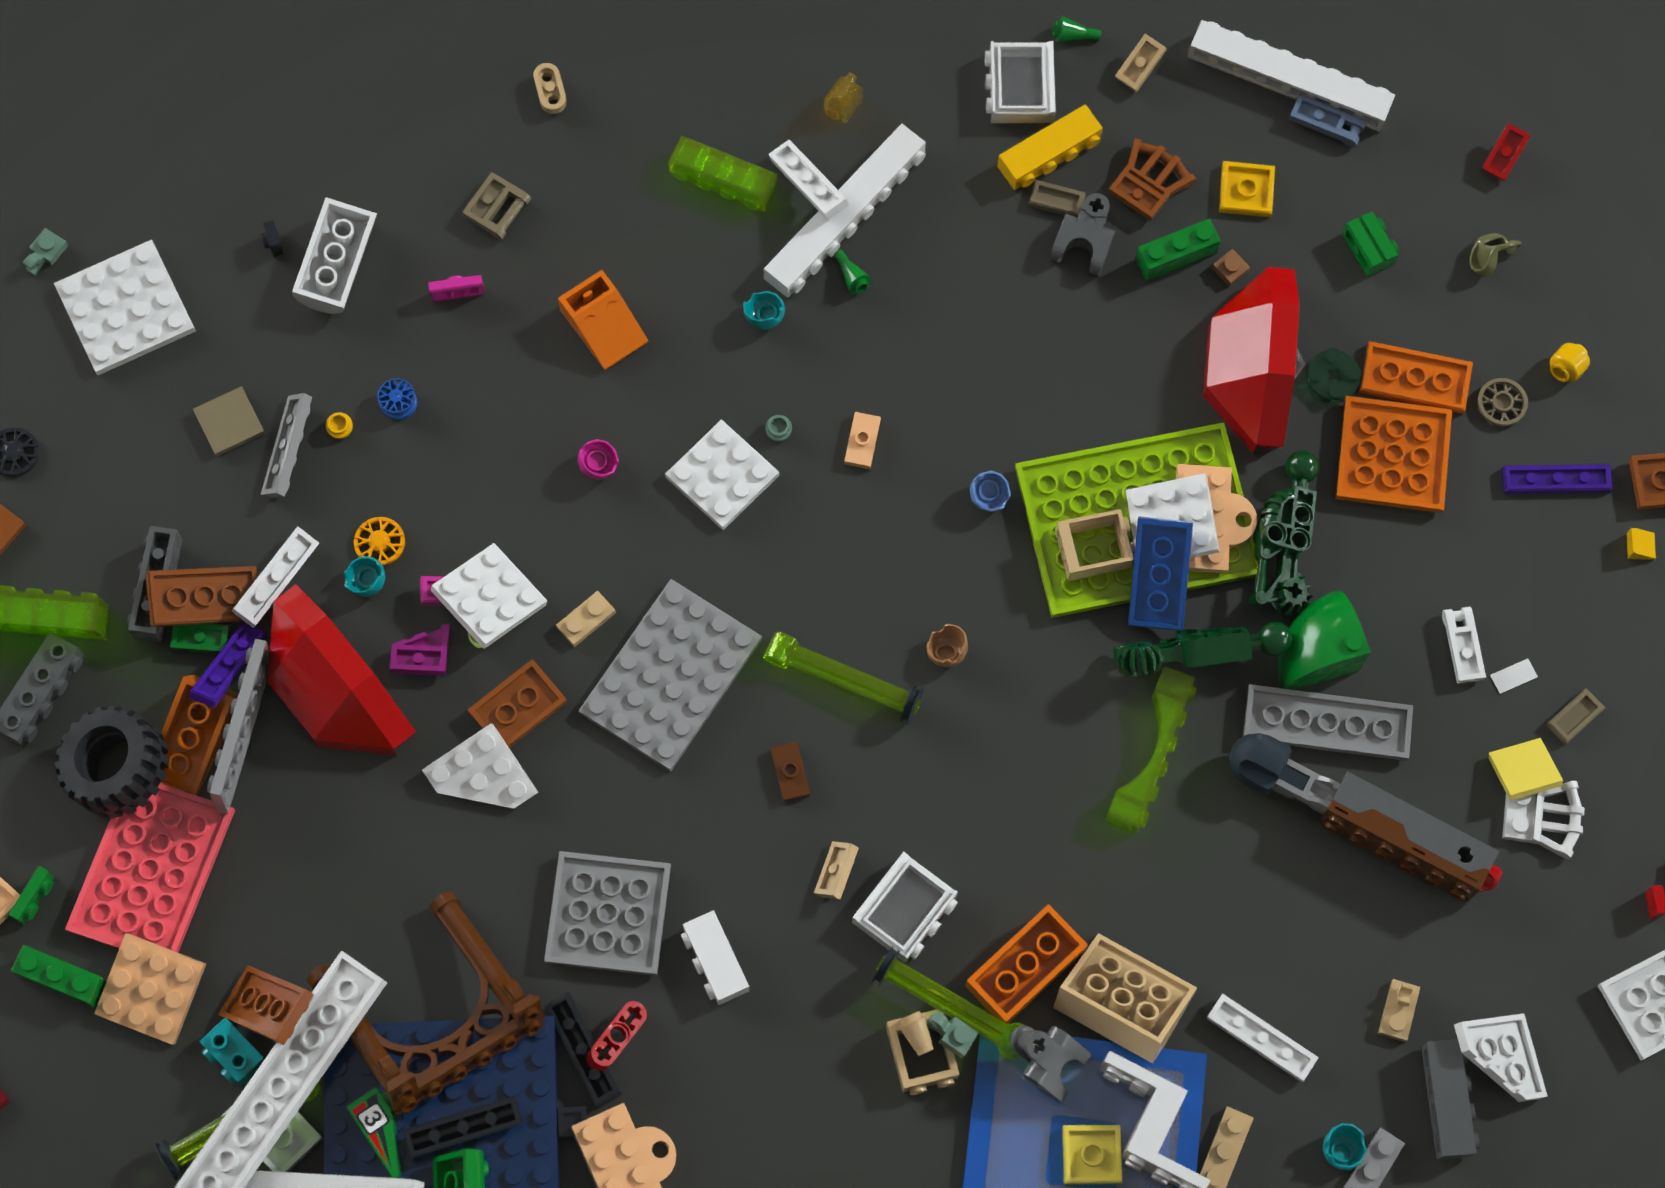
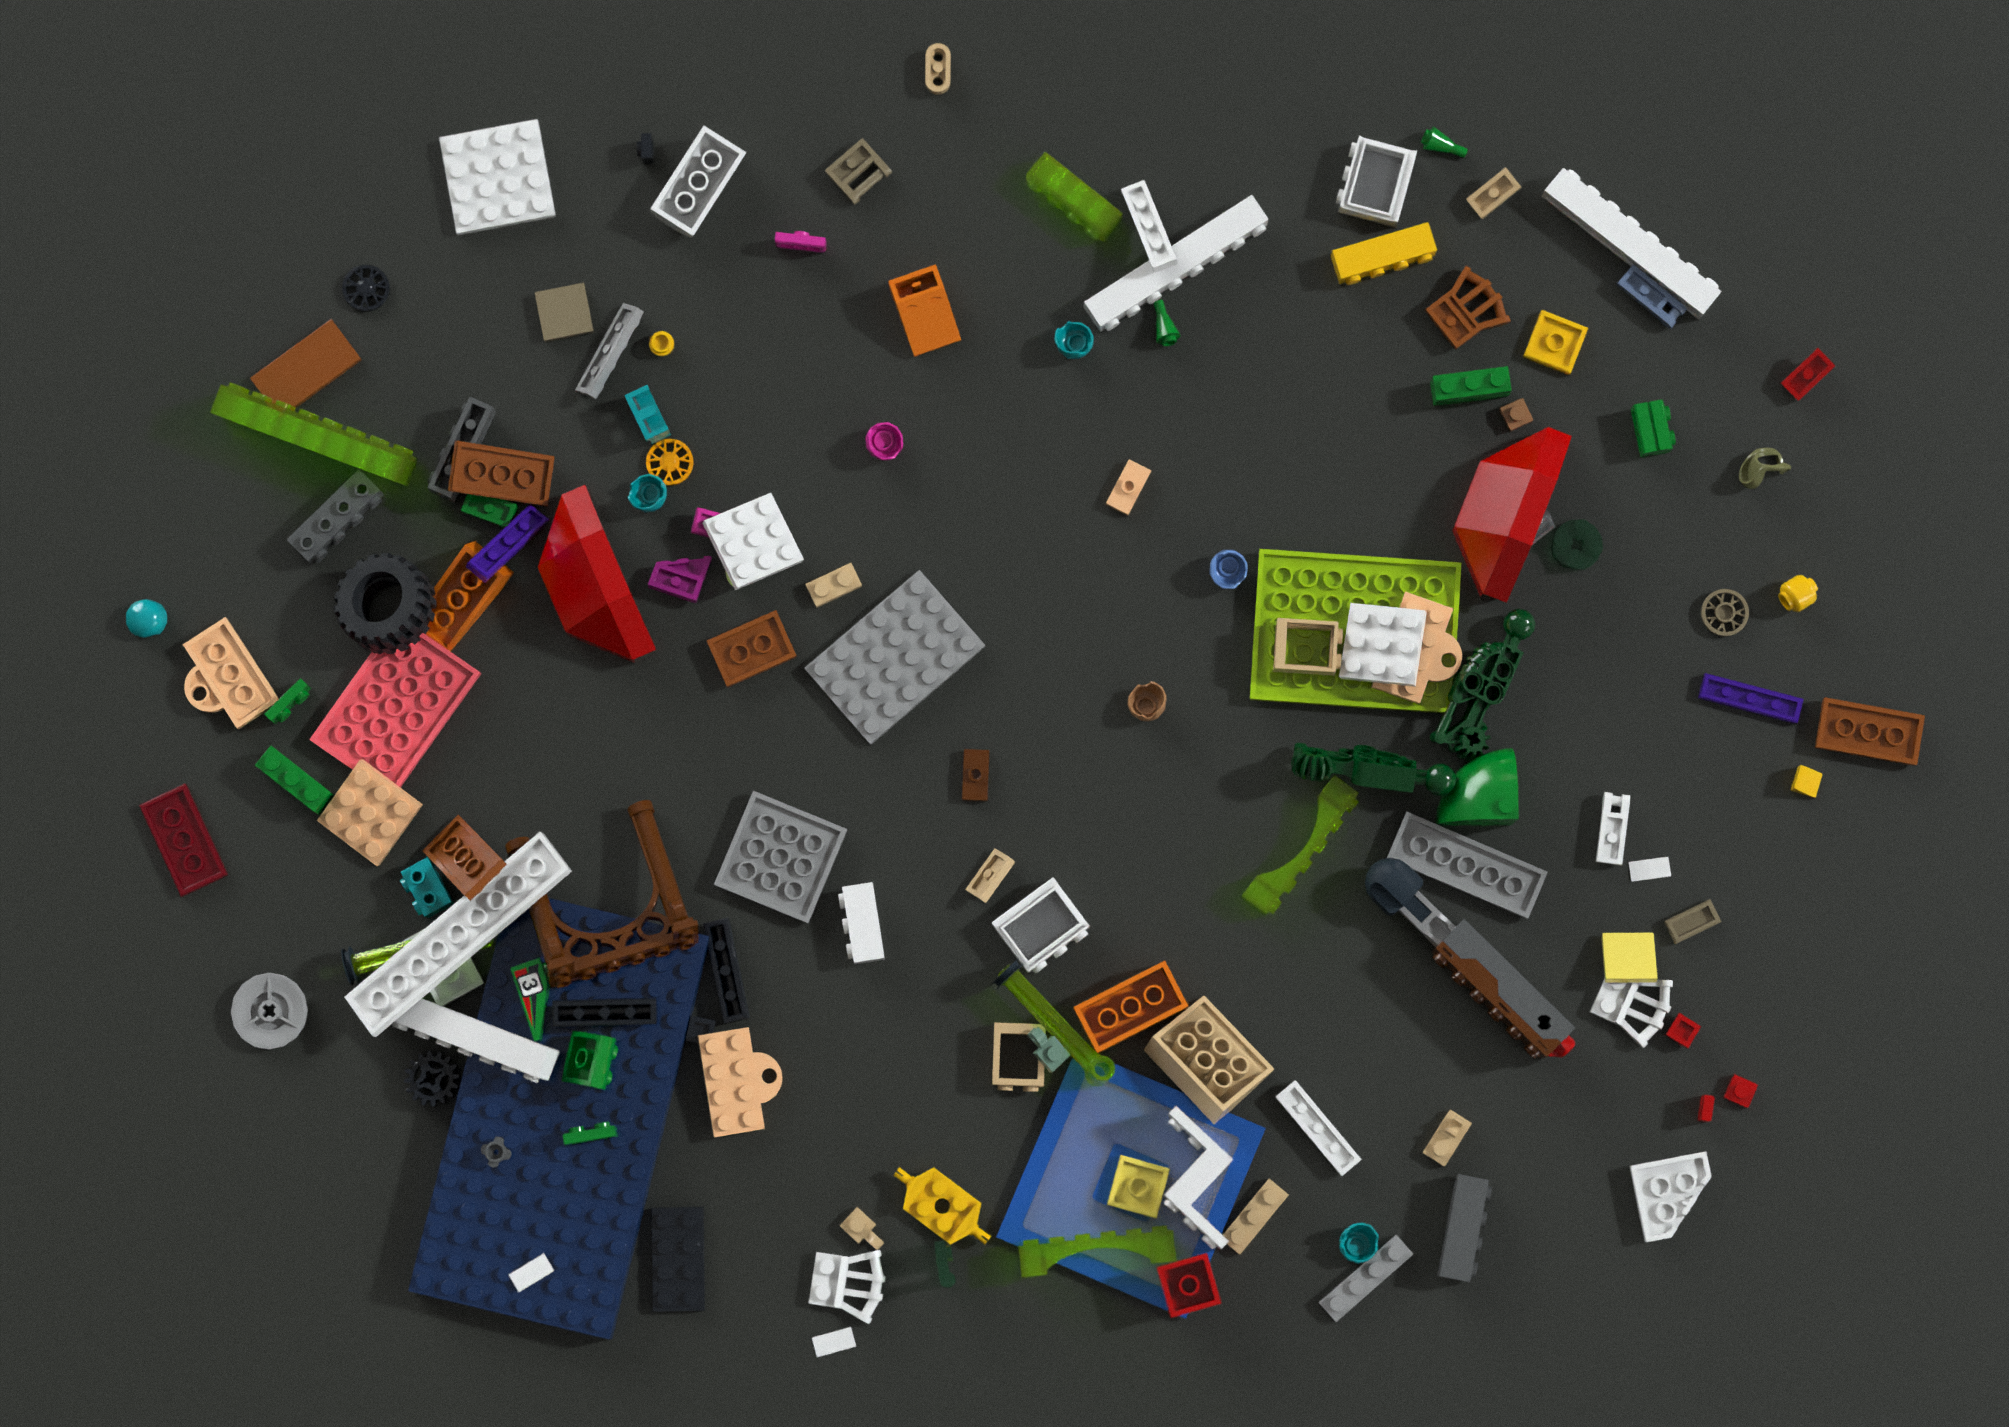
camera: 20 degrees right, 10 degrees up
(45, 248) = (439, 101): sand green plate -> none
(239, 731) = (499, 610): light grey plate -> none
(275, 577) = (568, 471): white plate -> none
(343, 498) = (647, 414): none -> teal window
(397, 400) = (719, 333): blue wheel -> none
(482, 771) = (705, 700): white plate -> none
(616, 1047) = (769, 967): red beam -> none
(722, 474) = (992, 484): white plate -> none
(778, 428) = (1055, 455): sand green plate -> none
(786, 652) = (1002, 666): clear neon green piece -> none
(843, 98) = (1205, 153): clear yellow brick -> none
(916, 1032) = (1016, 1040): tan cone -> none
(1046, 1057) = (1122, 1093): dark grey piece -> none
(1056, 199) = (1375, 304): dark tan tile -> none
(1086, 232) = (1393, 344): dark grey piece -> none
(1160, 573) = (1356, 690): blue tile -> none
(1393, 454) = (1607, 634): orange plate -> none
(1415, 377) = (1653, 567): orange tile -> none
(1504, 1053) = (1524, 1203): white plate -> none
(1605, 828) = (1683, 1030): none -> red plate

